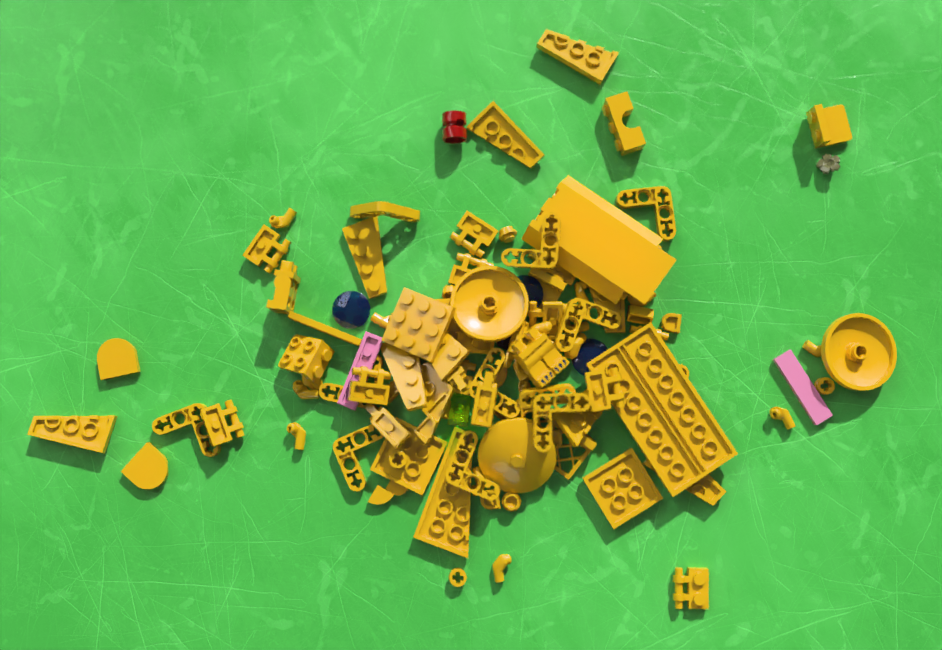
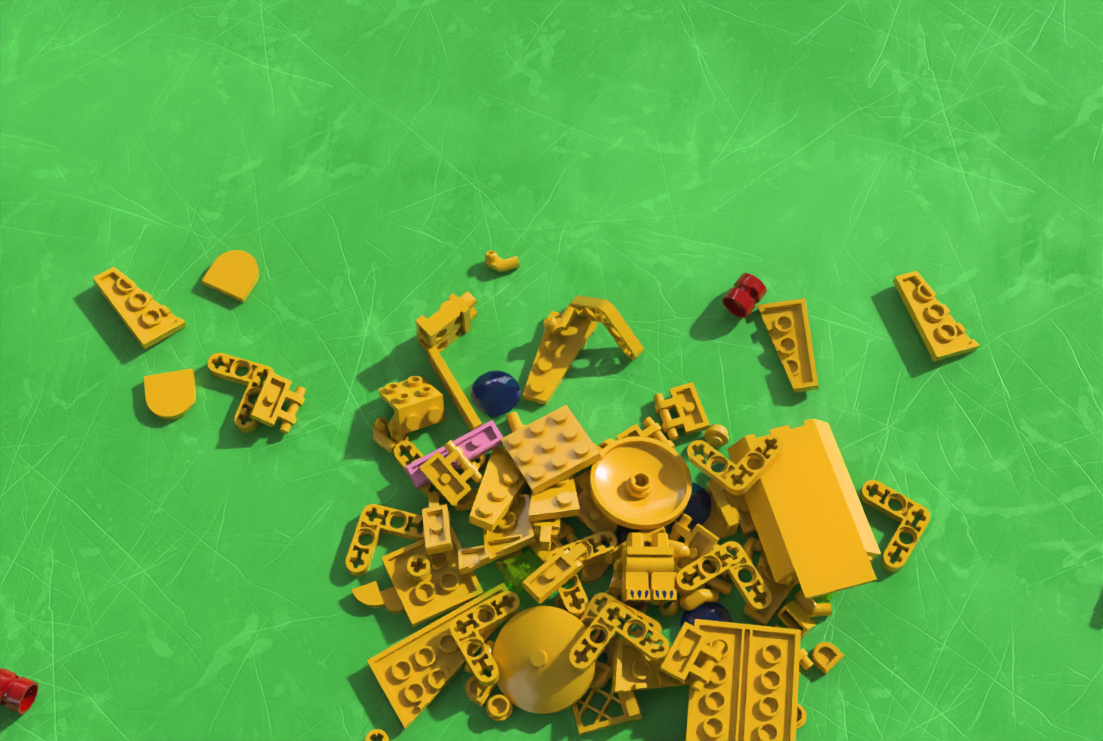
camera: 40 degrees right, 20 degrees down
(262, 245) = (460, 271): yellow plate -> none
(299, 433) = (342, 471): yellow arm -> none
(357, 233) = (560, 324): none -> yellow arm
(627, 139) = (923, 435): yellow arch -> none

